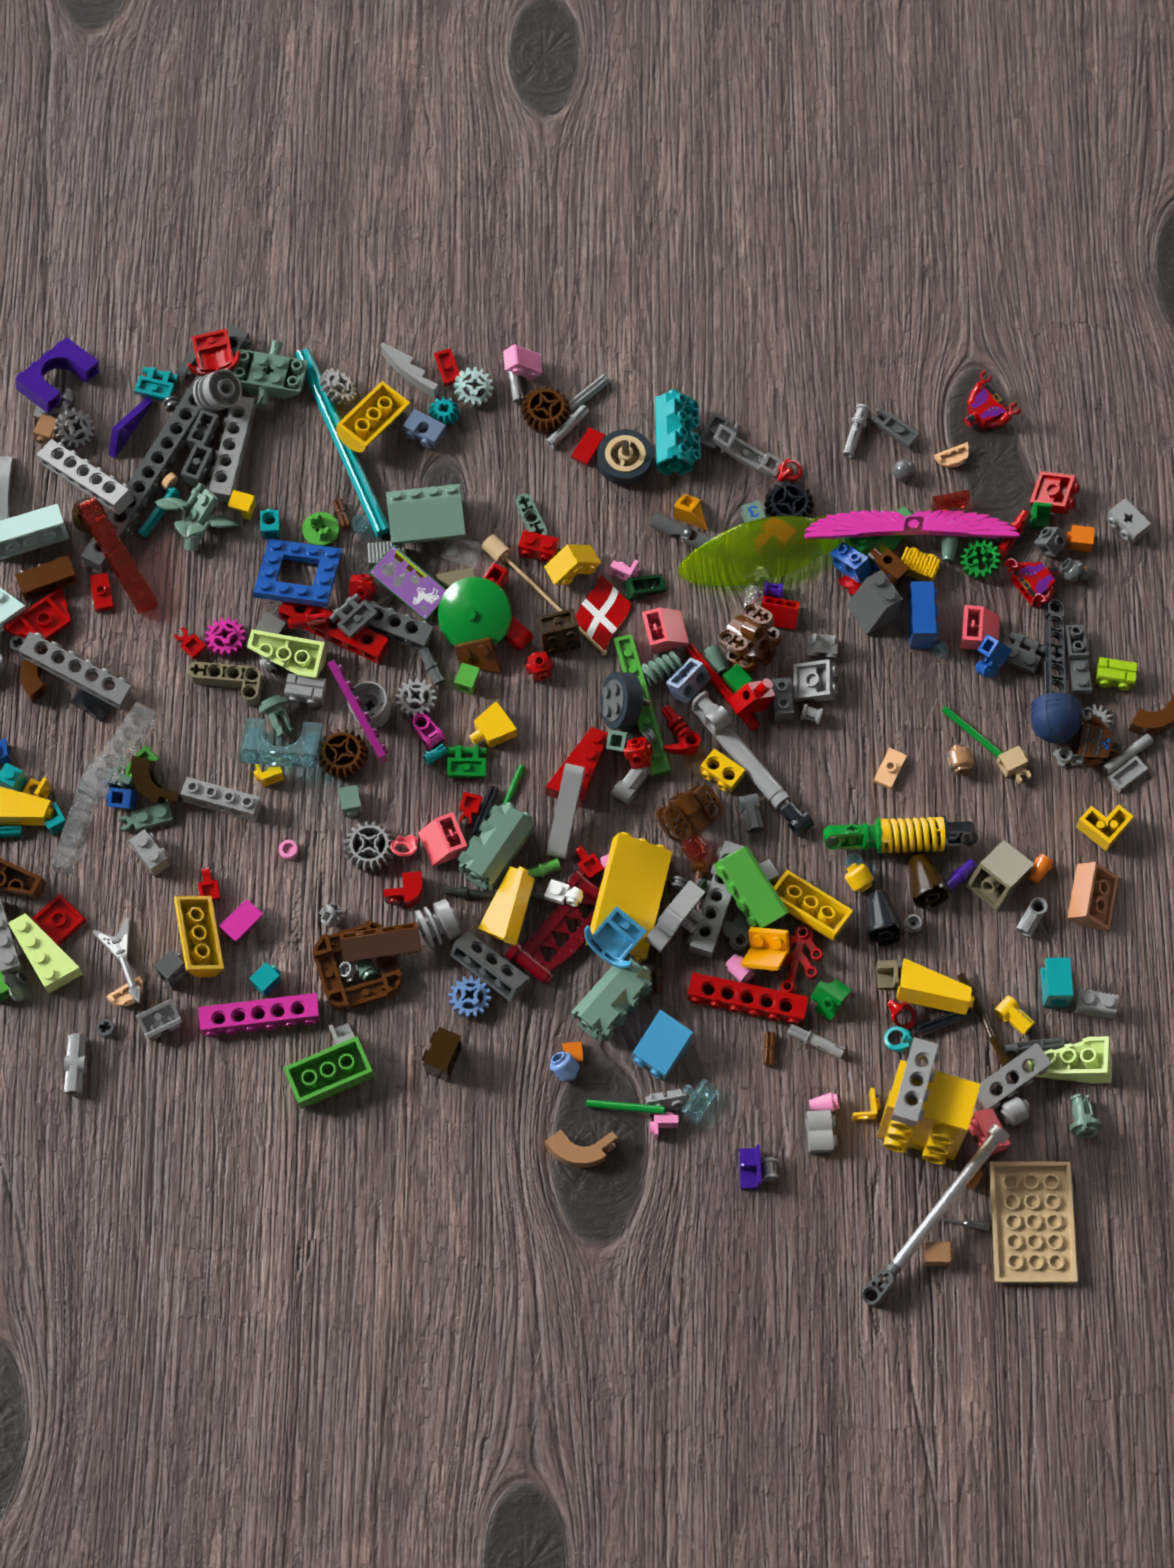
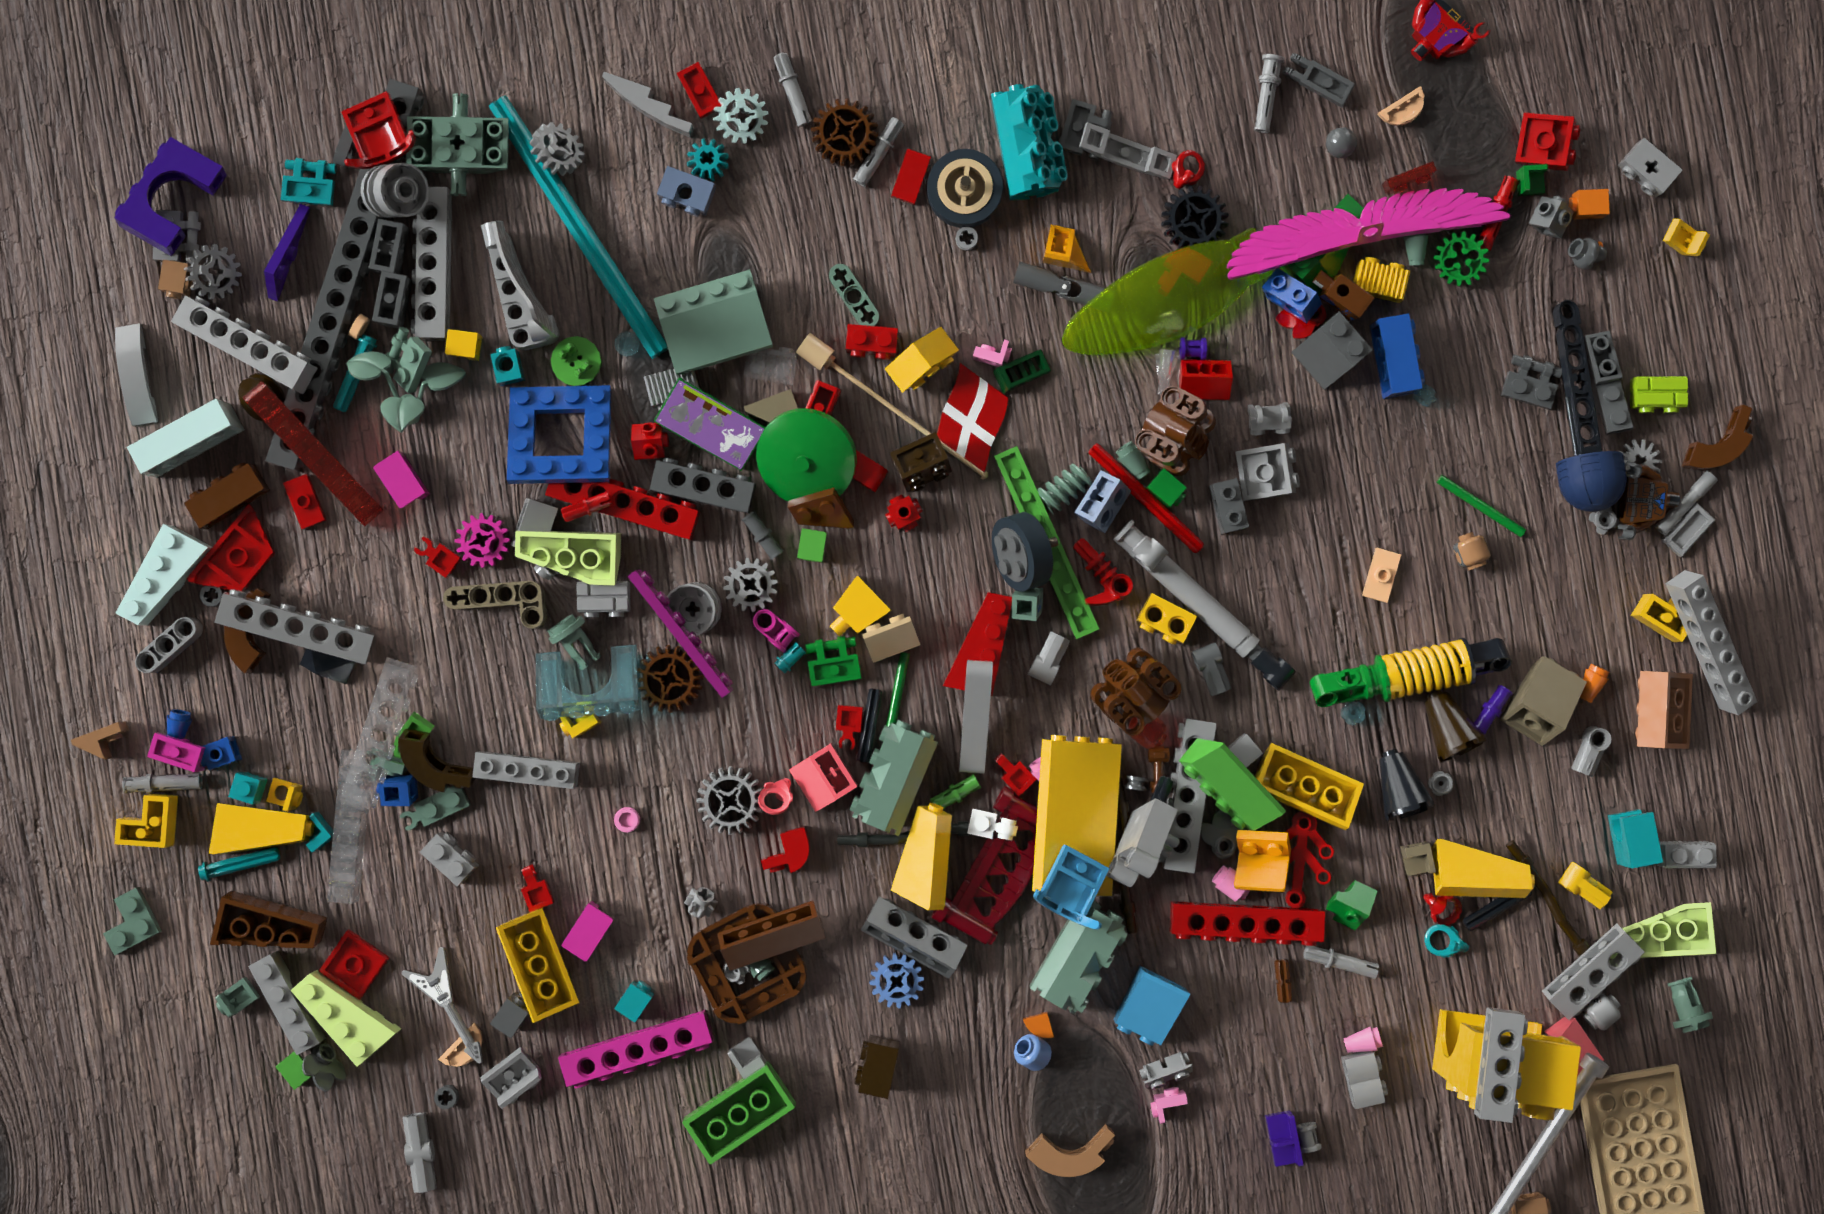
camera: 10 degrees left, 20 degrees up
(171, 403) = (336, 209): dark grey bush -> none
(175, 585) = (401, 479): none -> dark pink panel
(296, 480) = (534, 319): none -> light grey panel
(342, 514) = (602, 337): reddish brown piece -> none
(350, 801) = (693, 743): sand green brick -> none
(356, 619) = (652, 493): dark grey plate -> none
(371, 417) = (612, 190): yellow brick -> none
(441, 922) = (843, 892): light grey wheel -> none
(512, 748) = (891, 638): none -> tan slope
(522, 362) = (801, 71): bright pink brick -> none
(588, 392) = (897, 96): light grey axle -> none
(625, 490) = (962, 245): none -> light grey bush
(625, 1106) = (1118, 1090): green bar -> none
(638, 752) = (1056, 619): red brick -> none
(651, 738) = (1065, 593): dark grey bush -> none
(665, 629) = (1060, 433): coral slope -> none
(699, 1100) = (1207, 1065): clear light blue plate -> none
(752, 511) = (1149, 244): sand green brick -> none
(753, 697) = (1198, 509): red torso -> none
(811, 714) = (1270, 518): light grey bush -> none
(859, 877) = (1364, 737): yellow head -> none
(874, 1105) = (1426, 1034): yellow bracket -> none
(970, 1224) = (1581, 1161): flat silver piece -> none
(976, 624) = (1472, 361): coral slope -> none
(995, 655) = (1499, 396): blue brick -> none
(1014, 762) = (1540, 543): tan brick -> none
(1033, 580) = (1536, 279): red torso -> none
(1045, 1044) = (1620, 917): dark grey piece -> none
(1131, 845) = (1711, 642): none -> light grey brick
(1148, 572) = (1685, 238): none -> yellow bracket

